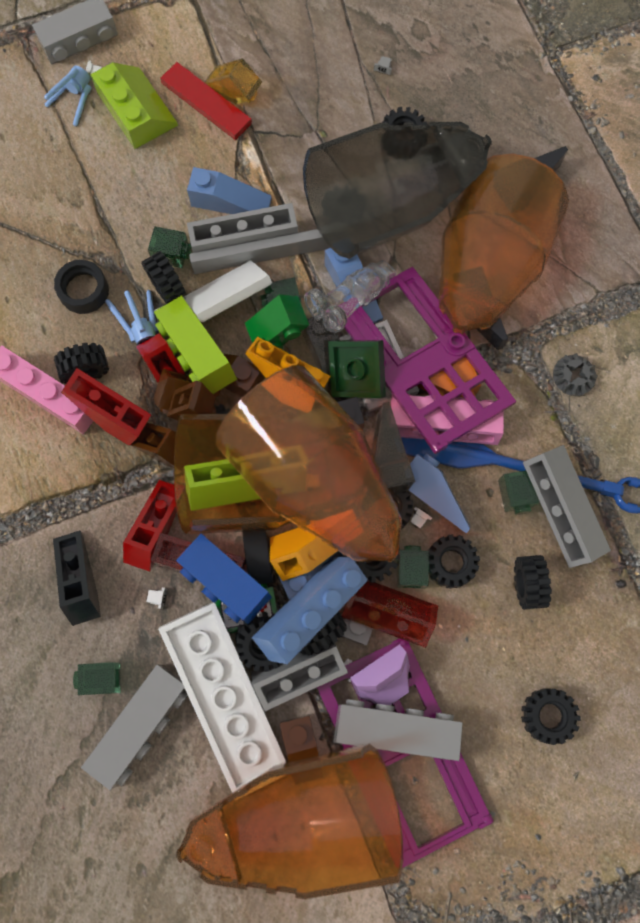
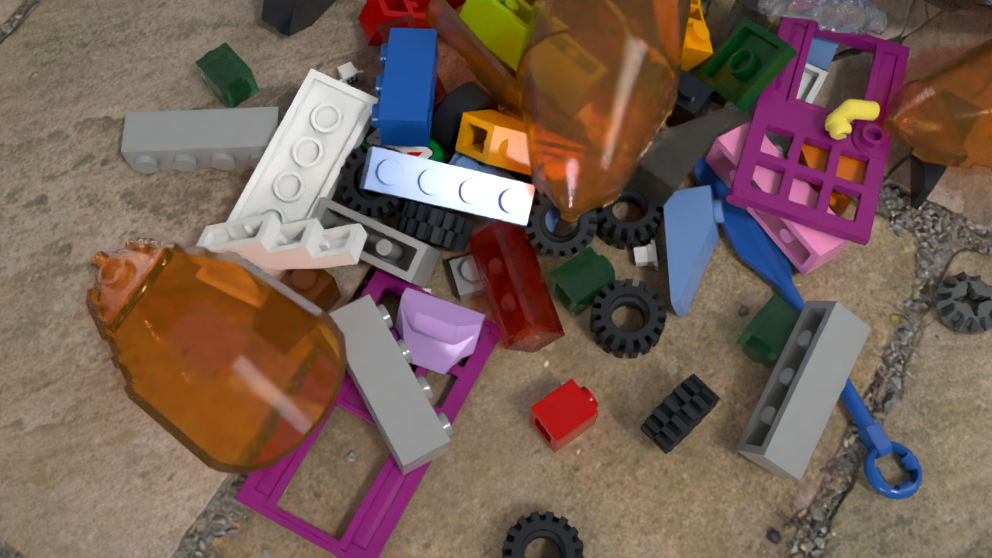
camera: 55 degrees right, 10 degrees down
(265, 735) = (286, 245): none -> white slope
(436, 338) = (839, 120): none -> light yellow arm
(483, 642) = (564, 414): none -> red brick

